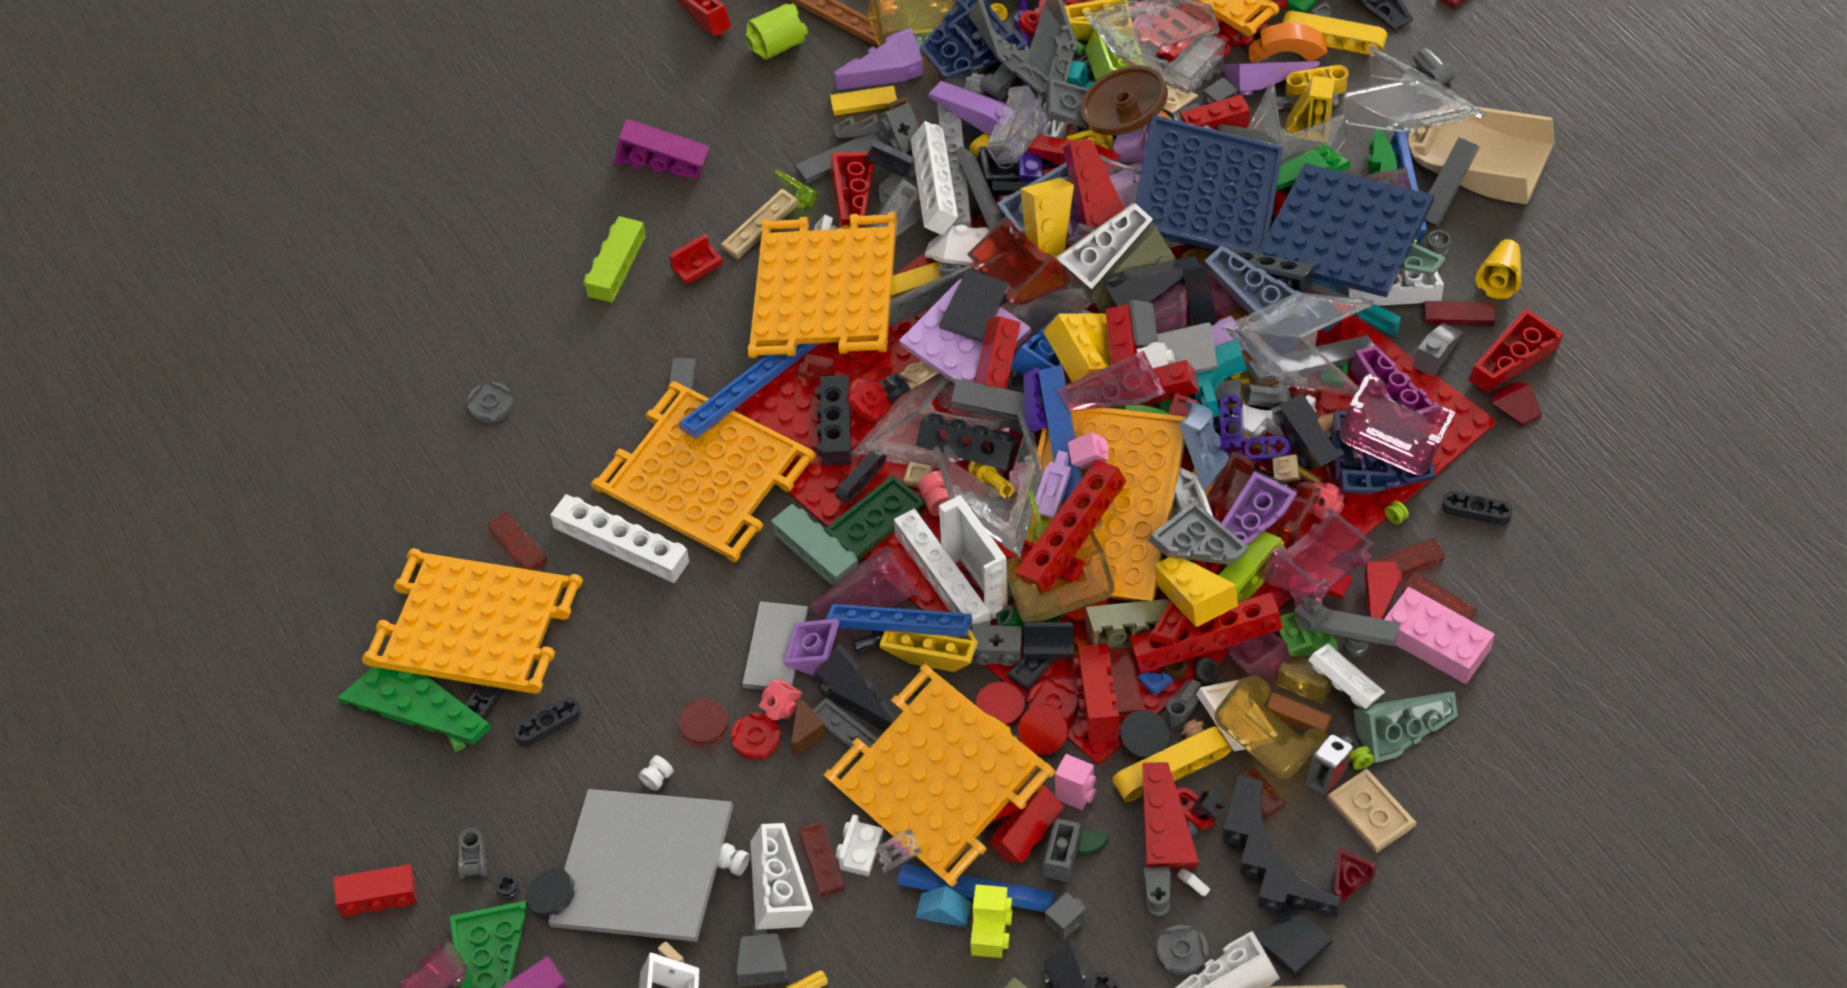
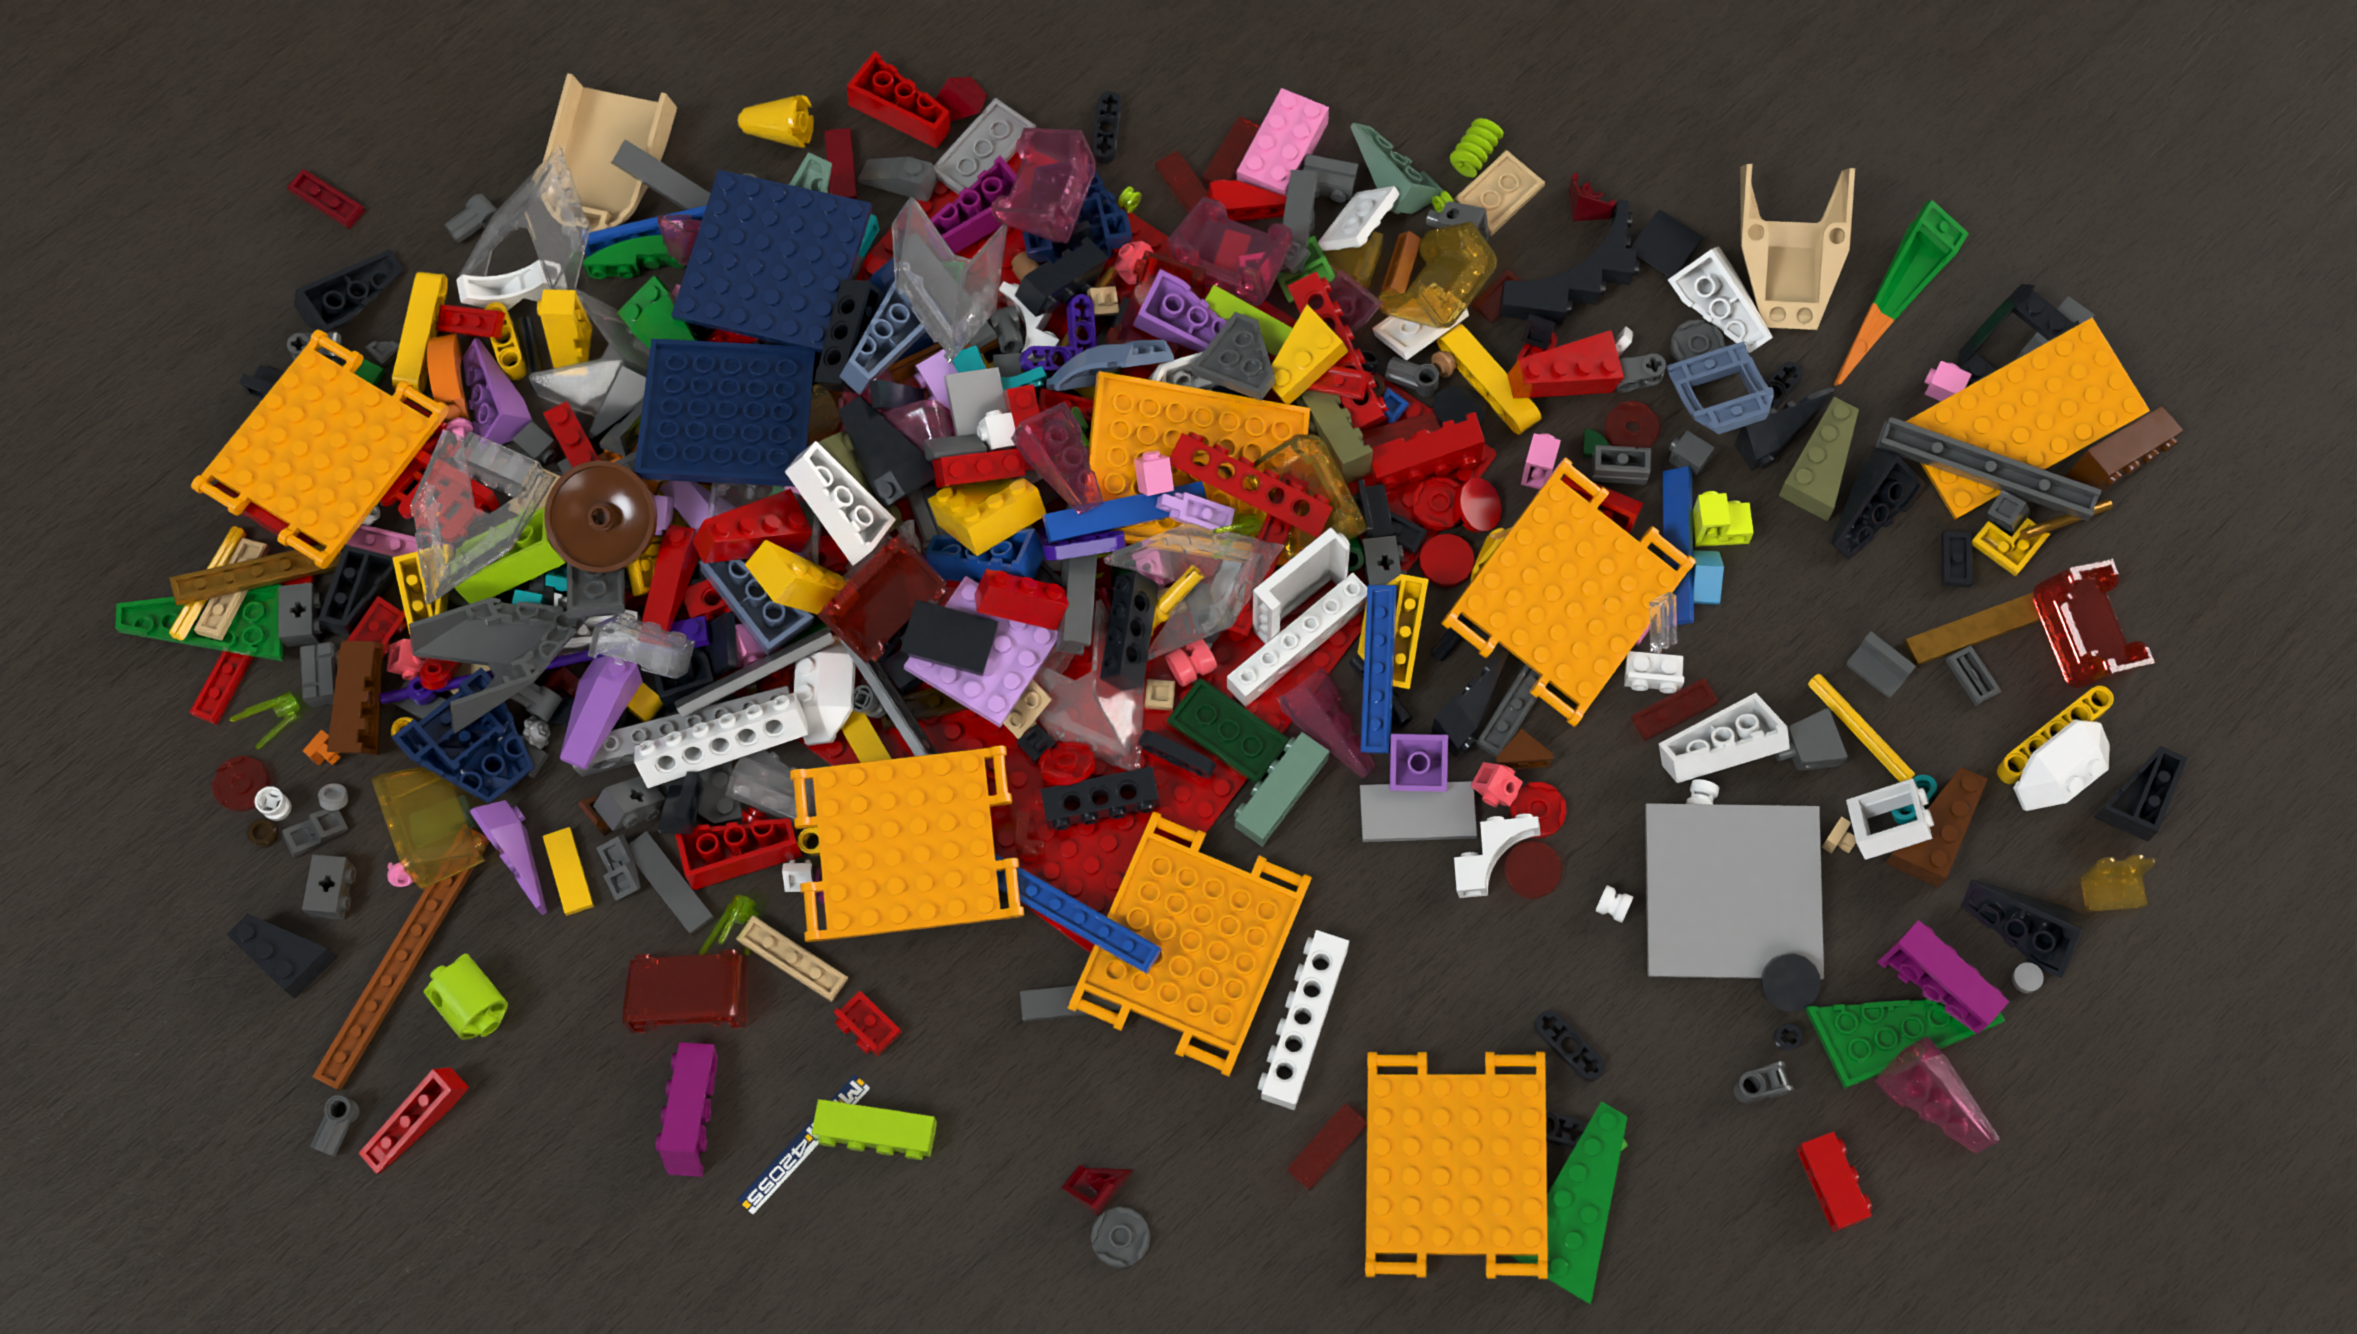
camera: 100 degrees left, 15 degrees up
(530, 388) = (1095, 1186): none -> dark red slope
(611, 214) = (795, 1152): none -> sticker
(711, 675) = (1497, 836): none -> white arch
(746, 156) = (685, 991): none -> clear red windscreen
(874, 206) = (753, 814): none -> red plate
(1101, 890) = (1632, 412): none -> clear red tile
(1147, 927) = (1716, 365): none -> sand blue wedge
(1240, 52) = (460, 426): none -> bright pink plate
(1333, 58) = (470, 321): none -> red tile
(1358, 67) = (505, 288): none -> white arch
(1400, 668) = (1335, 177): none -> dark grey brick
(1419, 793) = (1475, 146): none -> lime piece
(1474, 418) = (983, 141): none -> light grey tile

